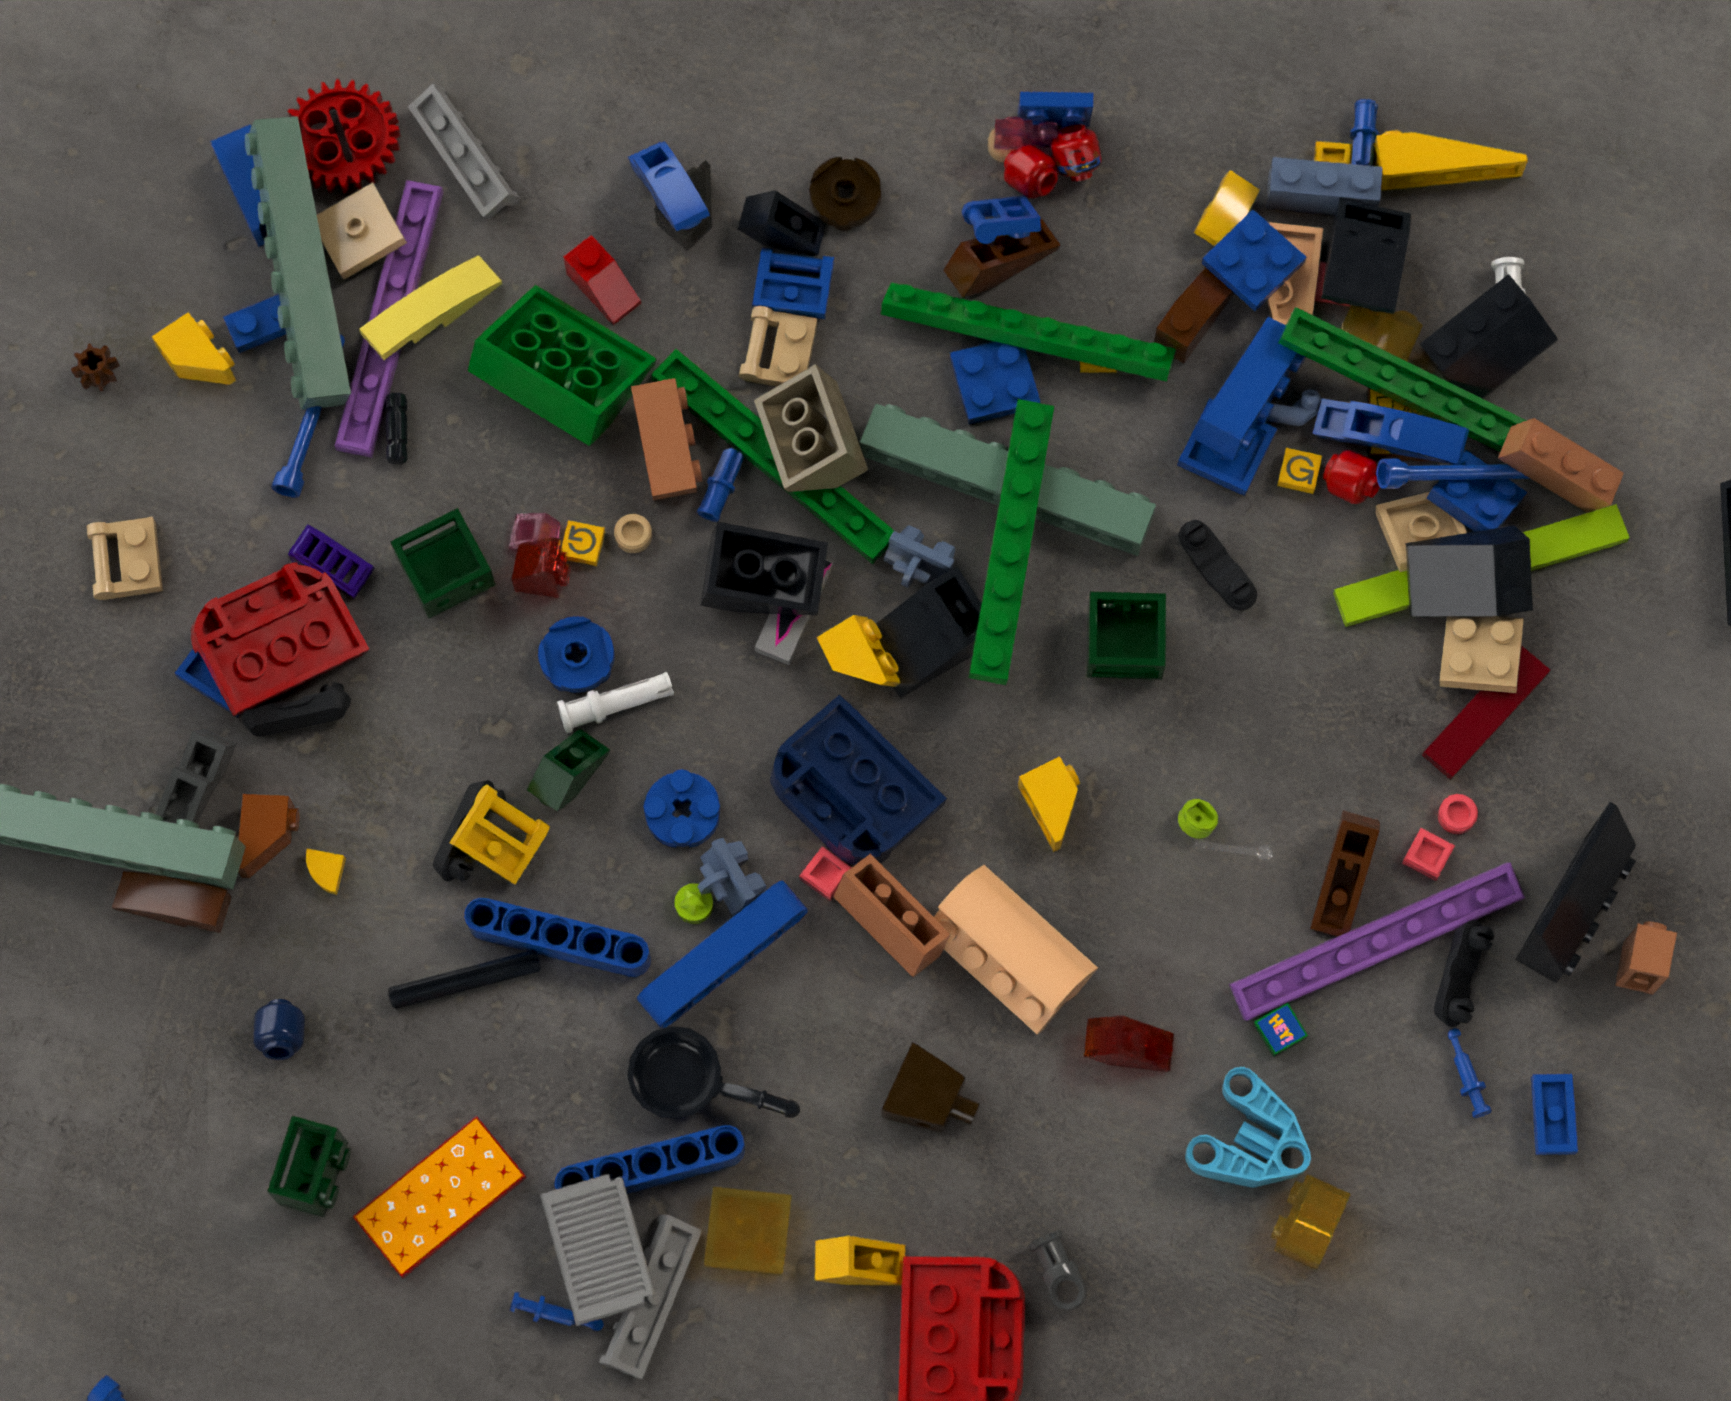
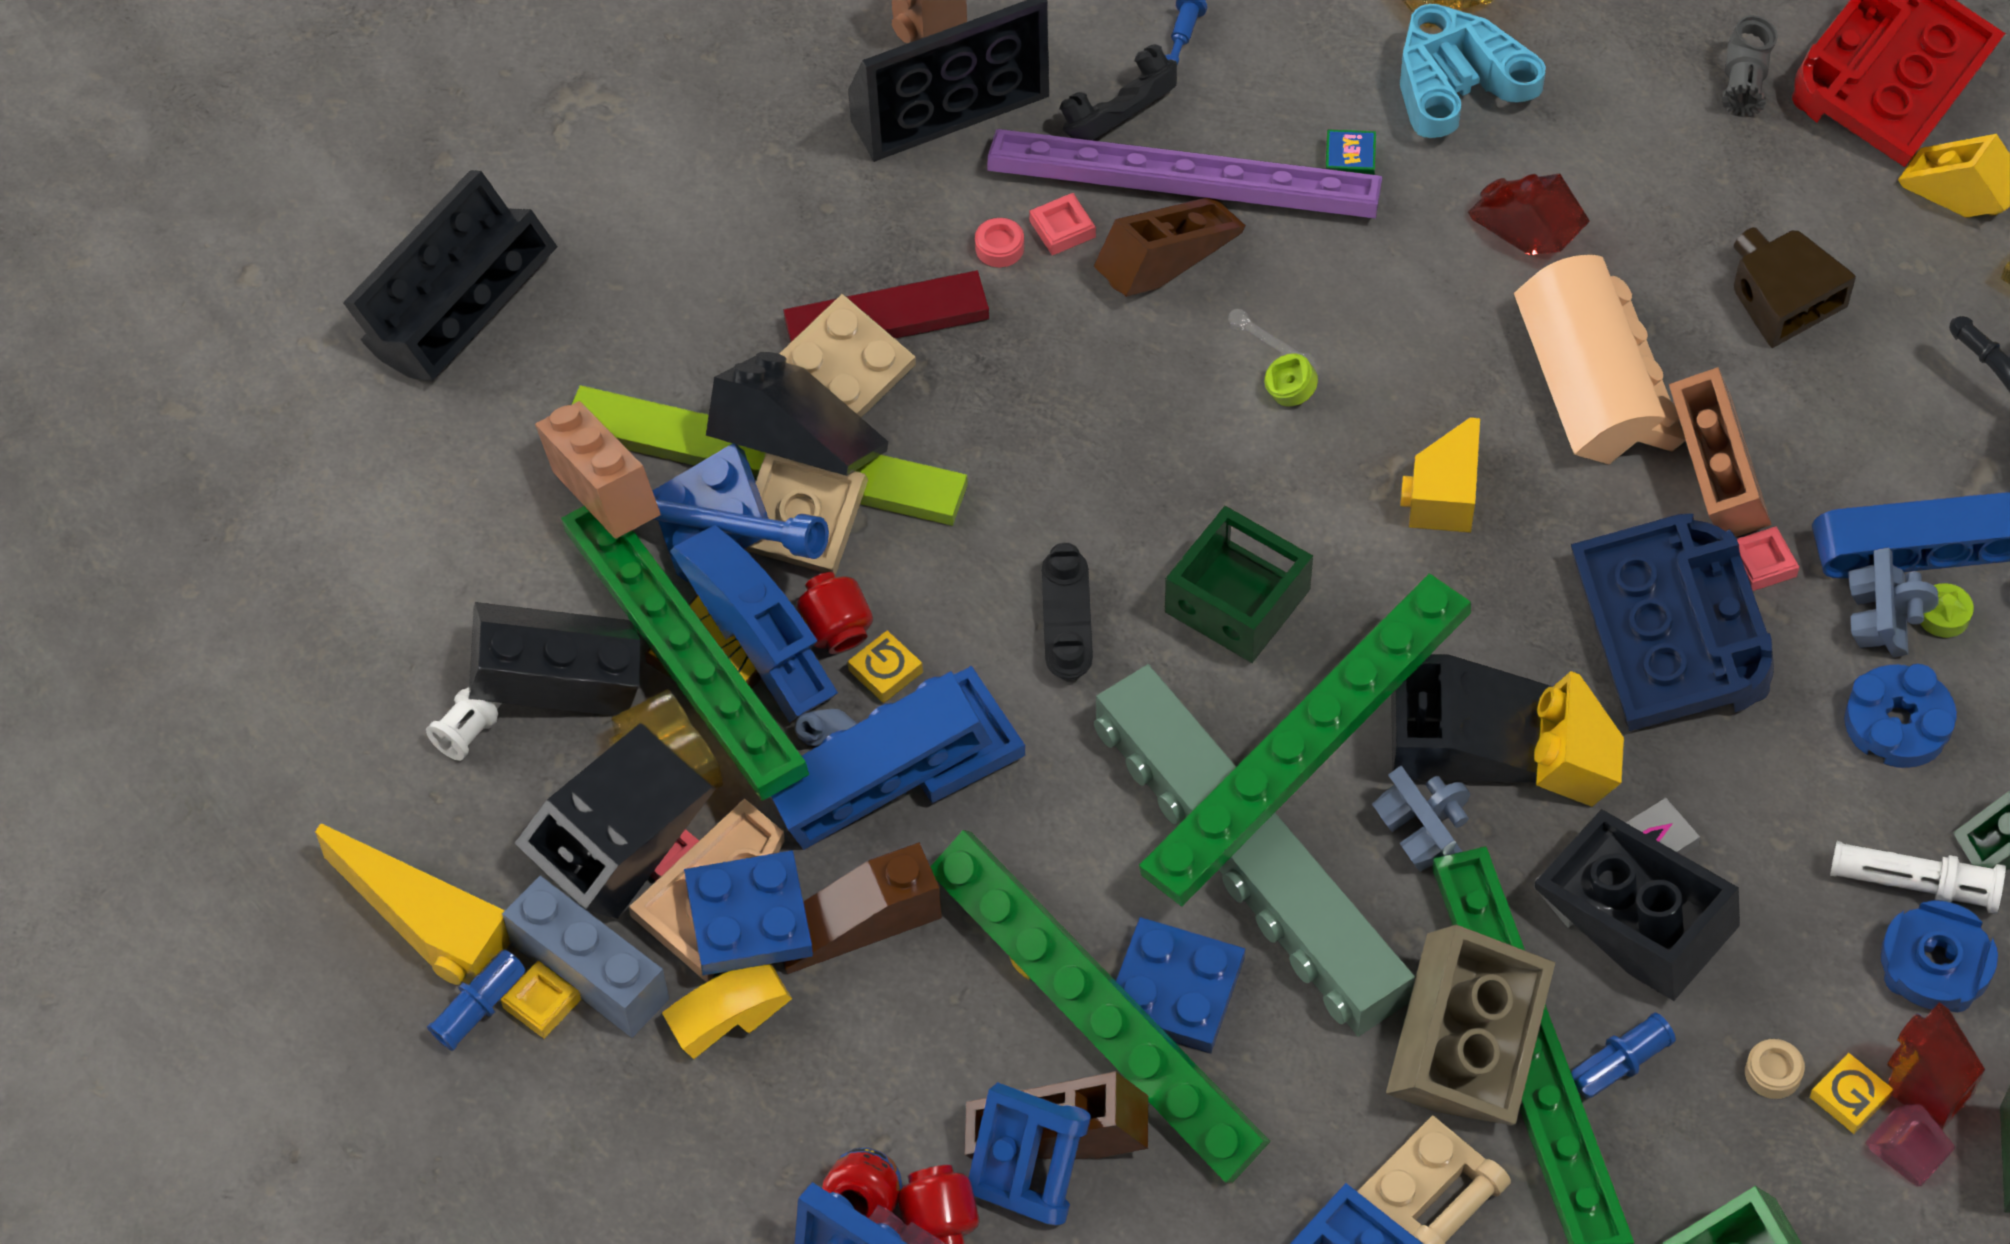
camera: 145 degrees left, 15 degrees down
(666, 439) = (1667, 1135): nougat brick -> none

